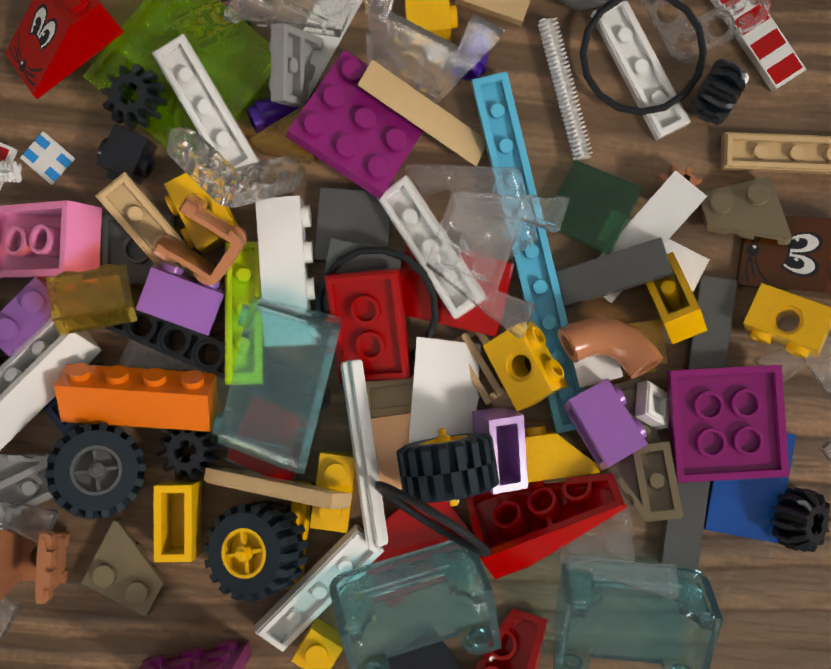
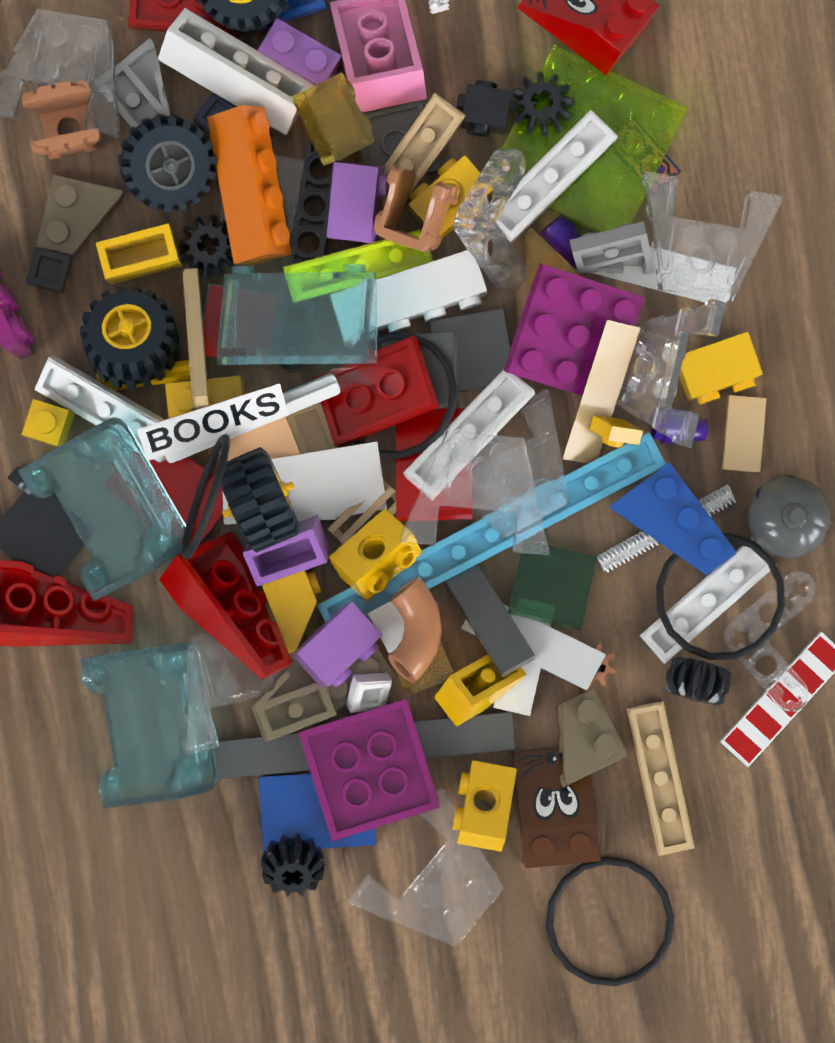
camera: 75 degrees right, 0 degrees up
(47, 158) = (464, 28): white sticker -> none
(171, 609) = (49, 270): none -> black plate
(359, 493) = (212, 422): none -> white sticker
(463, 108) = (615, 431): none -> yellow plate
(559, 74) = (676, 519): none -> blue wing

